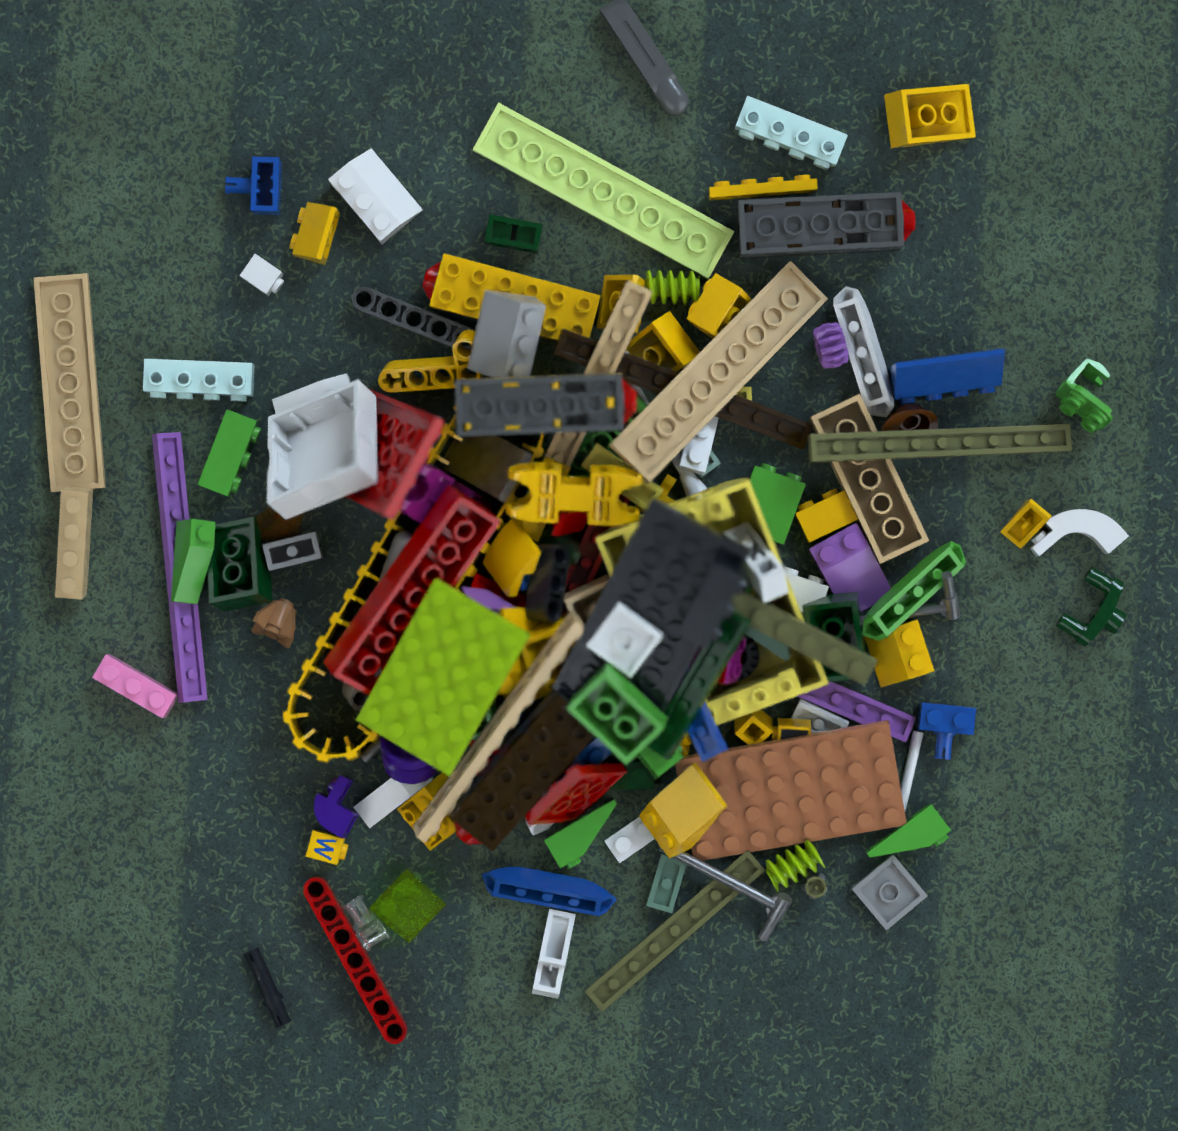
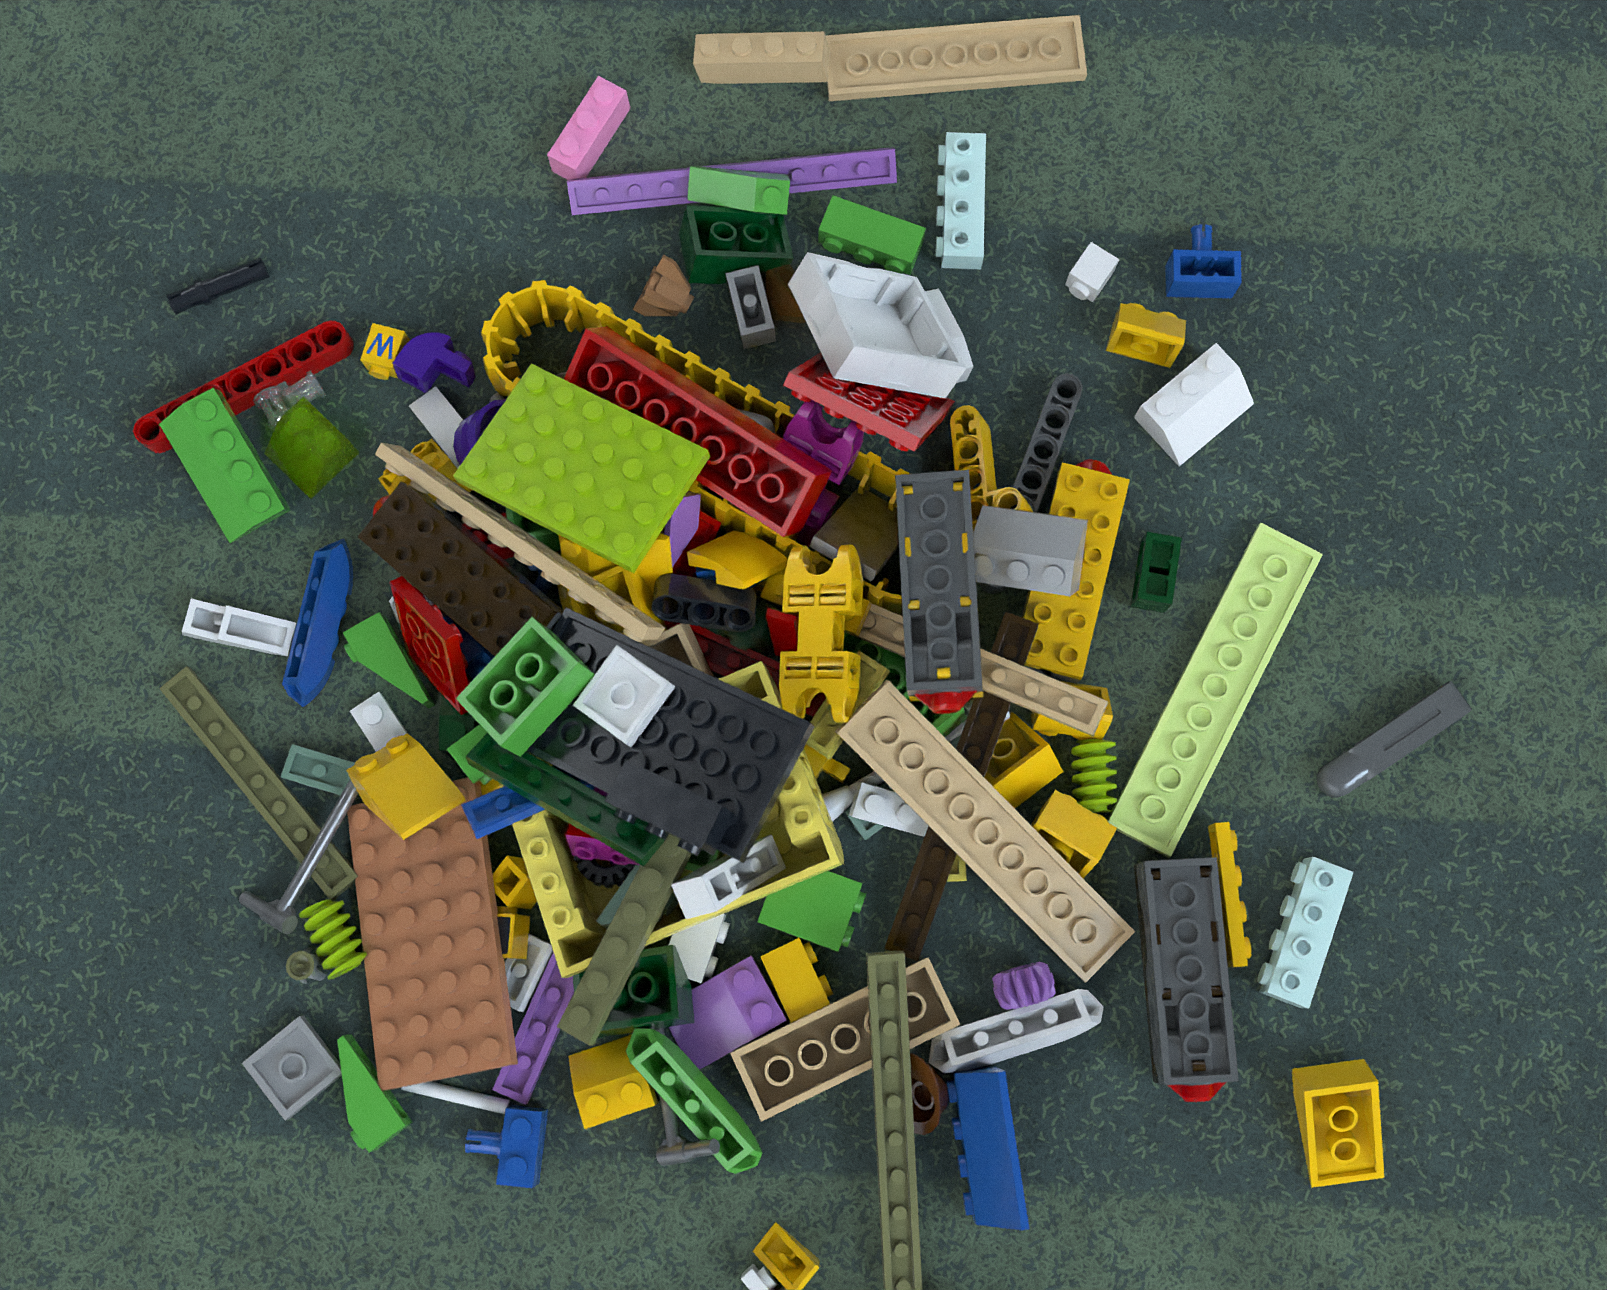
camera: 90 degrees right, 10 degrees down
(425, 969) = (224, 464): none -> bright green slope

